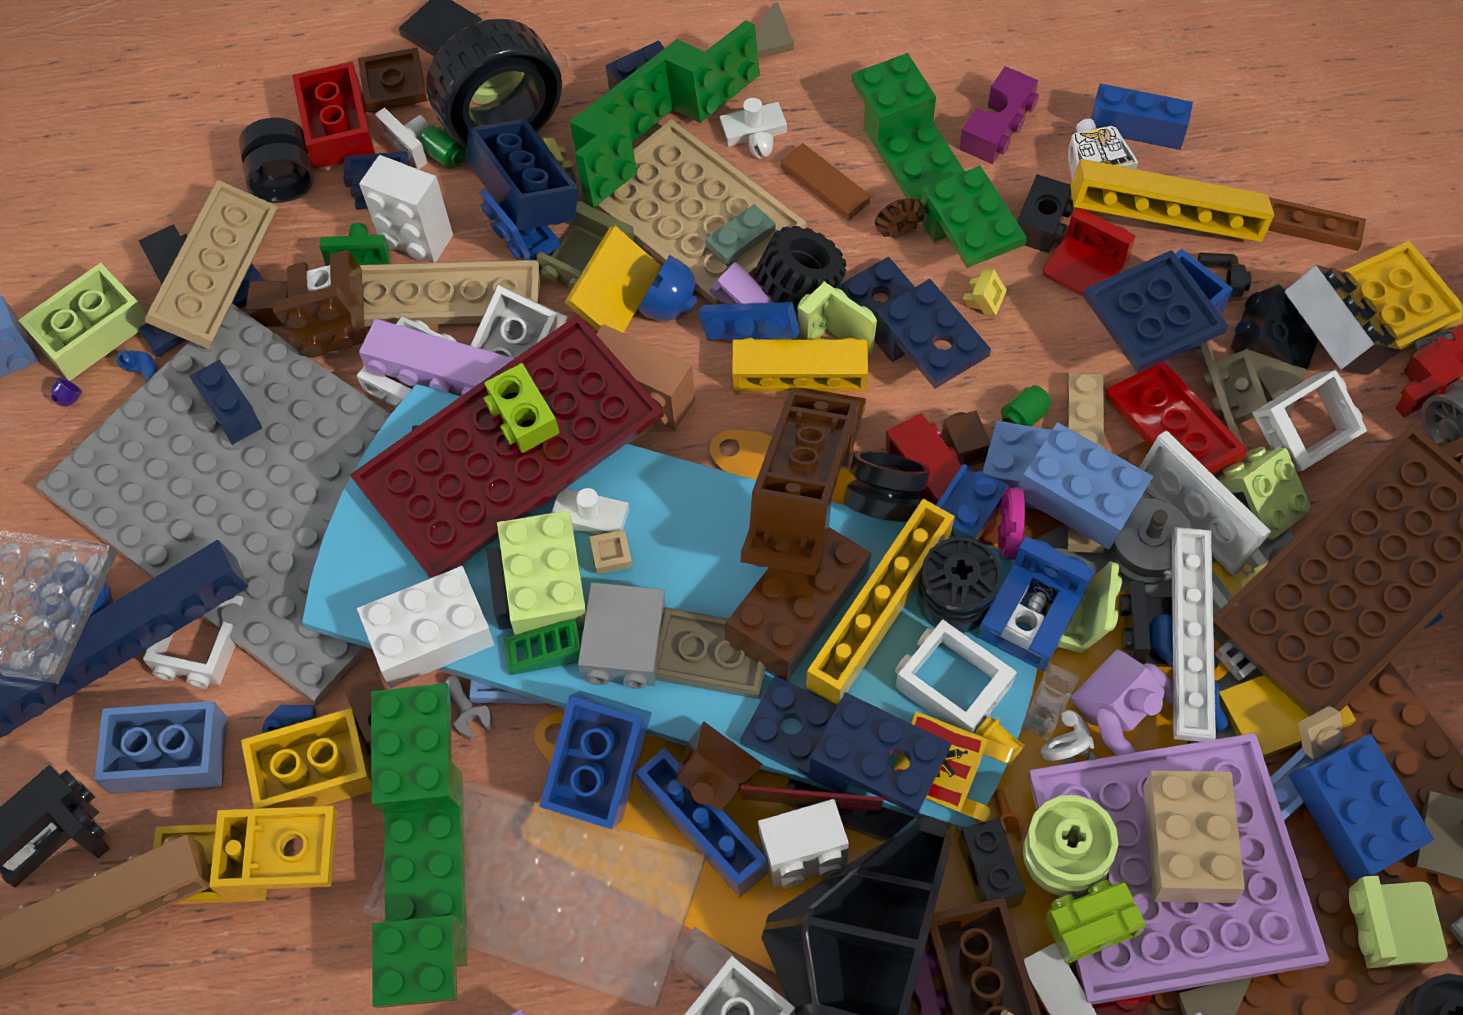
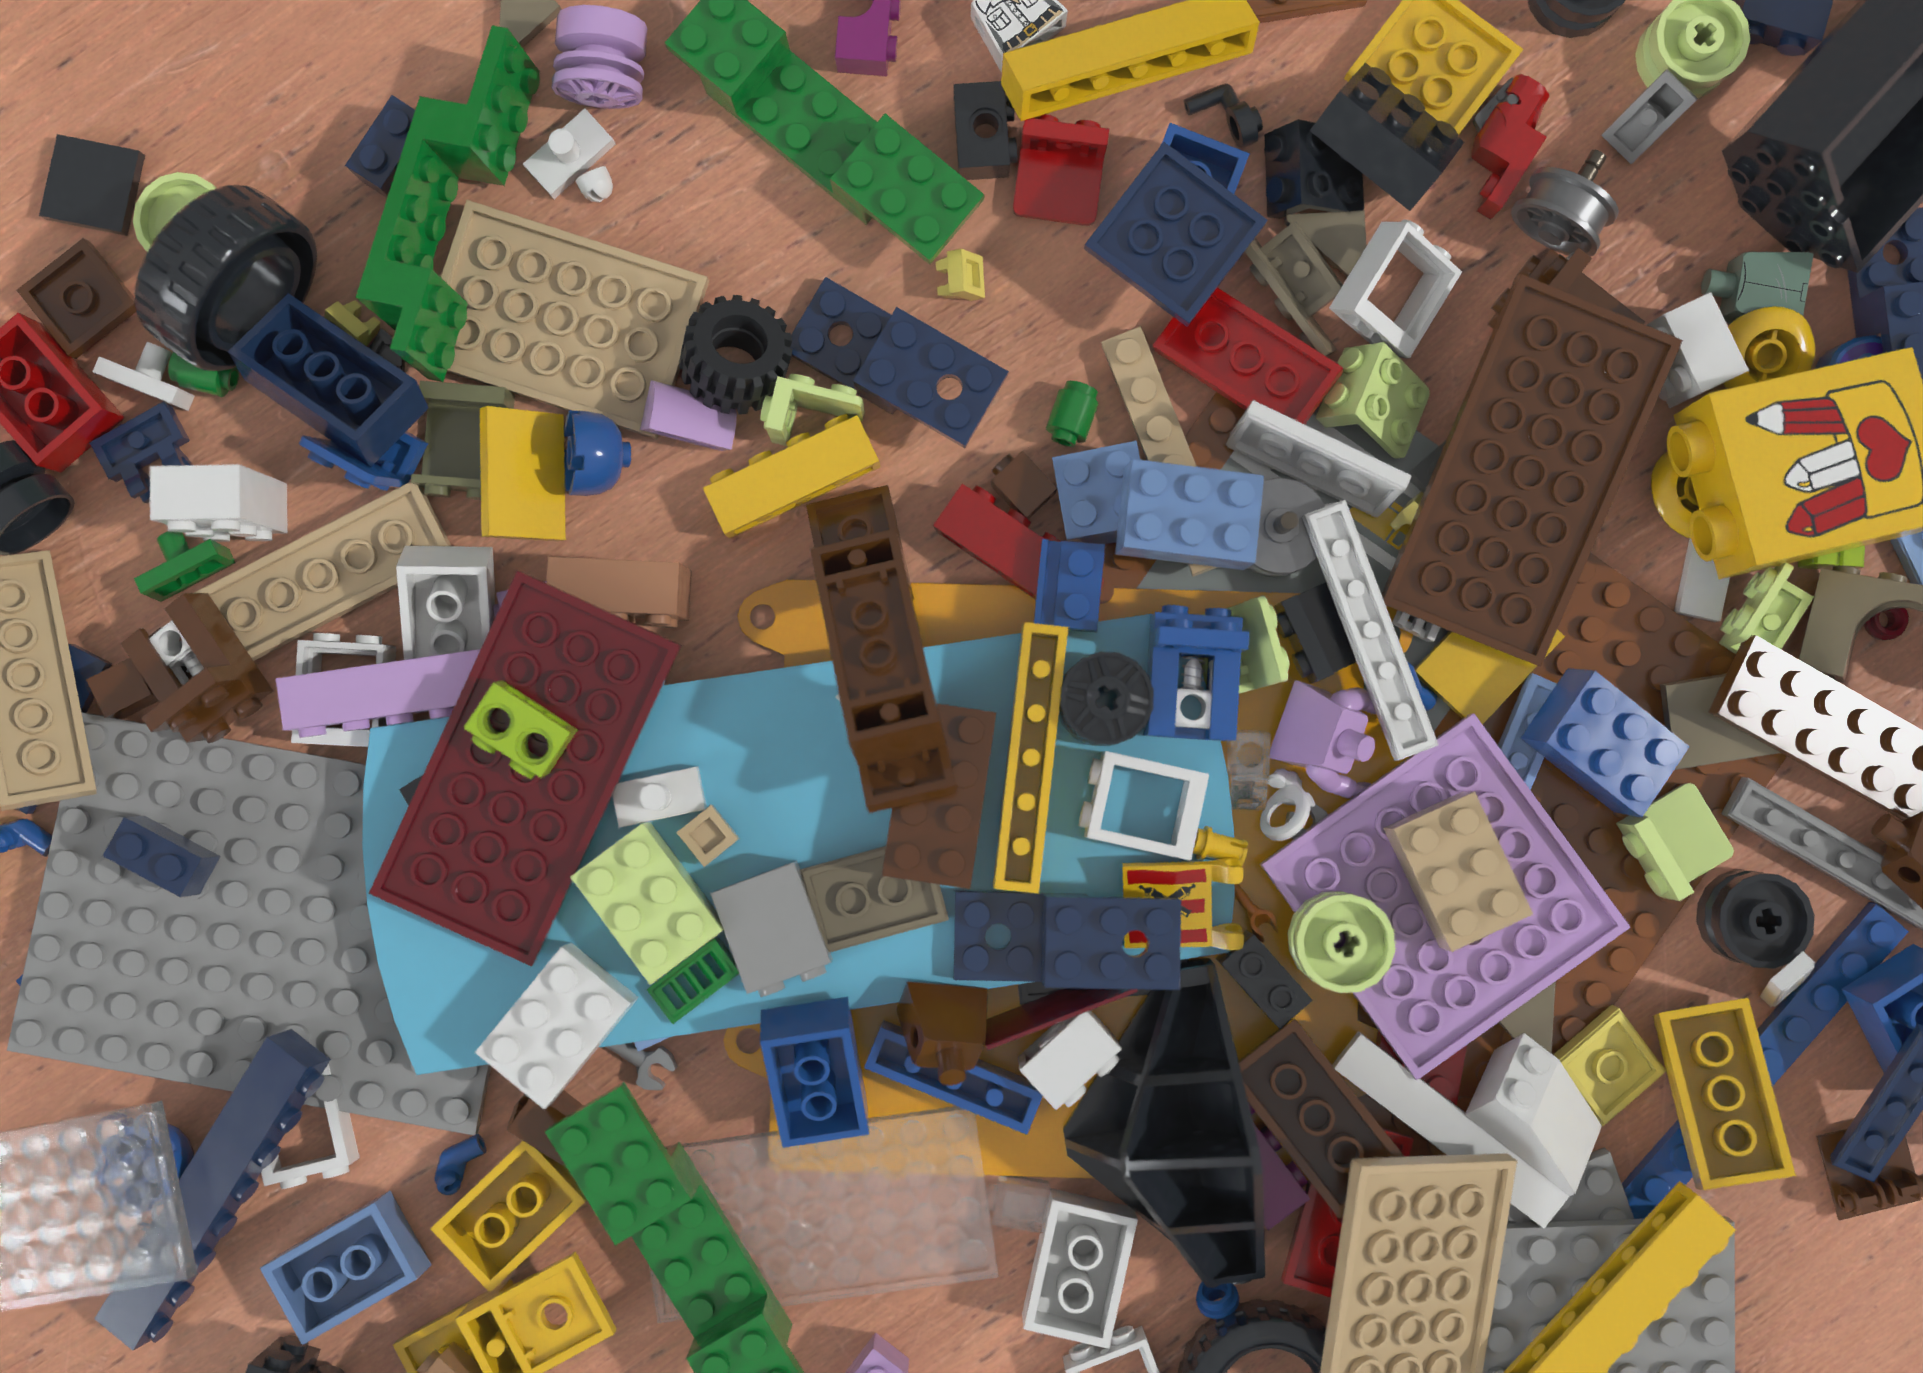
camera: 30 degrees left, 25 degrees up
(498, 588) = (607, 941): black tile -> none
(740, 235) = (638, 335): sand green plate -> none
(749, 321) = (710, 455): blue plate -> none
(804, 71) = (599, 56): none -> lavender wheel
(825, 181) = (698, 199): dark orange tile -> none
(885, 485) = (969, 606): black wheel -> none
(899, 217) = (816, 220): reddish brown gear -> none
(1012, 522) = (1129, 596): dark pink tile -> none
(1094, 920) = (1394, 1005): lime brick -> none
(1161, 637) = (1335, 641): blue arm -> none
(1321, 732) = (1540, 680): tan plate -> none

